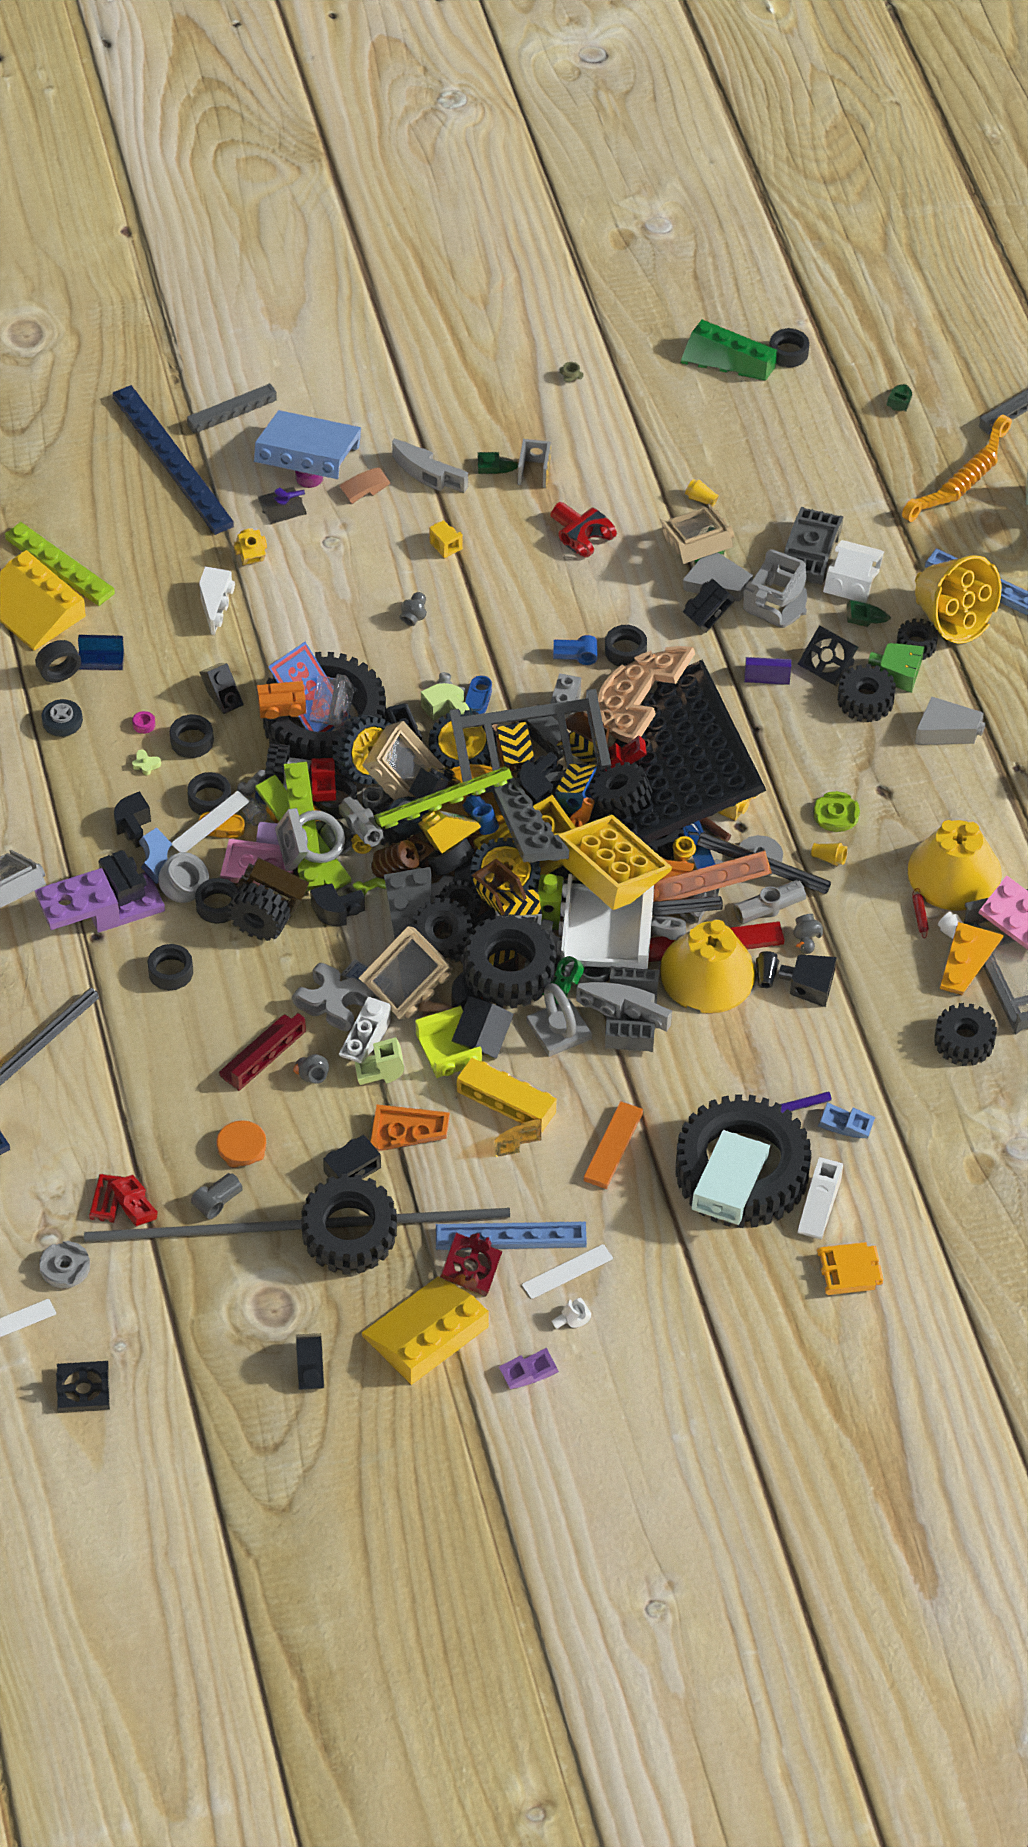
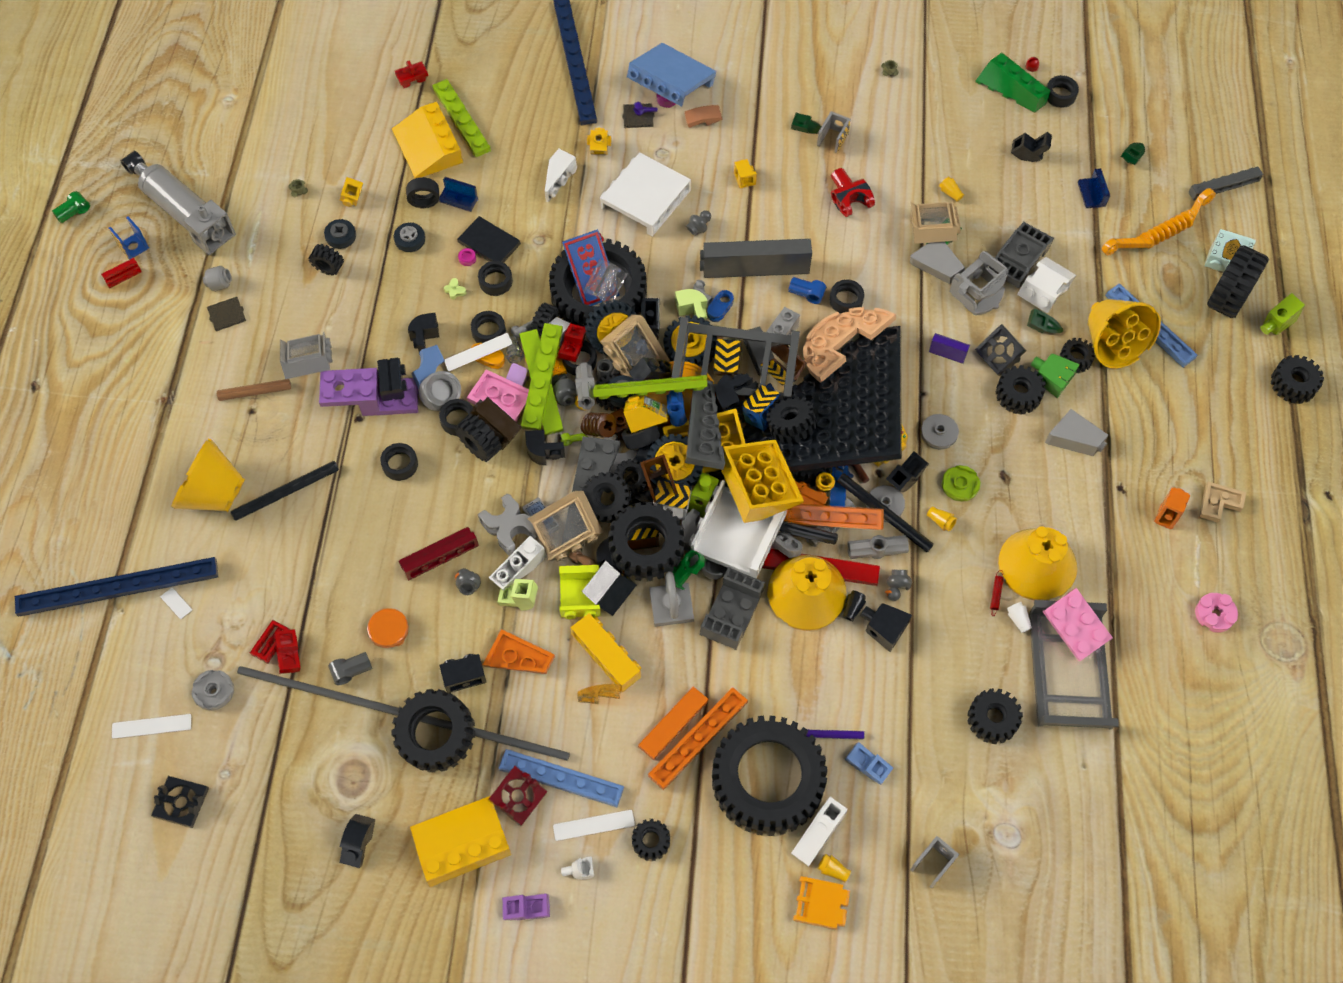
camera: 20 degrees right, 10 degrees up
(162, 696) = (488, 240): none -> black tile
(221, 687) = (533, 246): black slope -> none
(231, 408) = (633, 32): dark grey piece -> none
(281, 699) = (563, 270): orange brick -> none
(294, 841) = (526, 388): light grey tile -> none
(334, 589) = (646, 192): none -> white panel
(421, 466) = (755, 119): light grey slope -> none
(502, 629) = (756, 258): none -> dark grey brick
(582, 815) = (756, 430): orange arm -> none
(618, 999) = (722, 598): light grey slope -> none
(629, 753) = (804, 389): red slope -> none
(641, 1251) = (654, 852): none -> black tyre
(648, 1151) = (697, 738): none -> orange plate
(708, 605) = (921, 282): black brick -> none
(729, 1177) = (749, 791): light aqua panel -> none
(742, 324) = (1032, 64): none -> red hinge
(772, 817) = (907, 475): none -> black brick
(777, 424) = (1031, 149): none -> black brick
(791, 763) = (938, 439): none -> light grey plate
(848, 1231) = (832, 867): none -> yellow cone
(869, 451) = (1094, 190): none -> clear blue panel
(950, 1178) = (950, 854): none -> light grey piece
(967, 955) = (1020, 645): light orange wing -> none

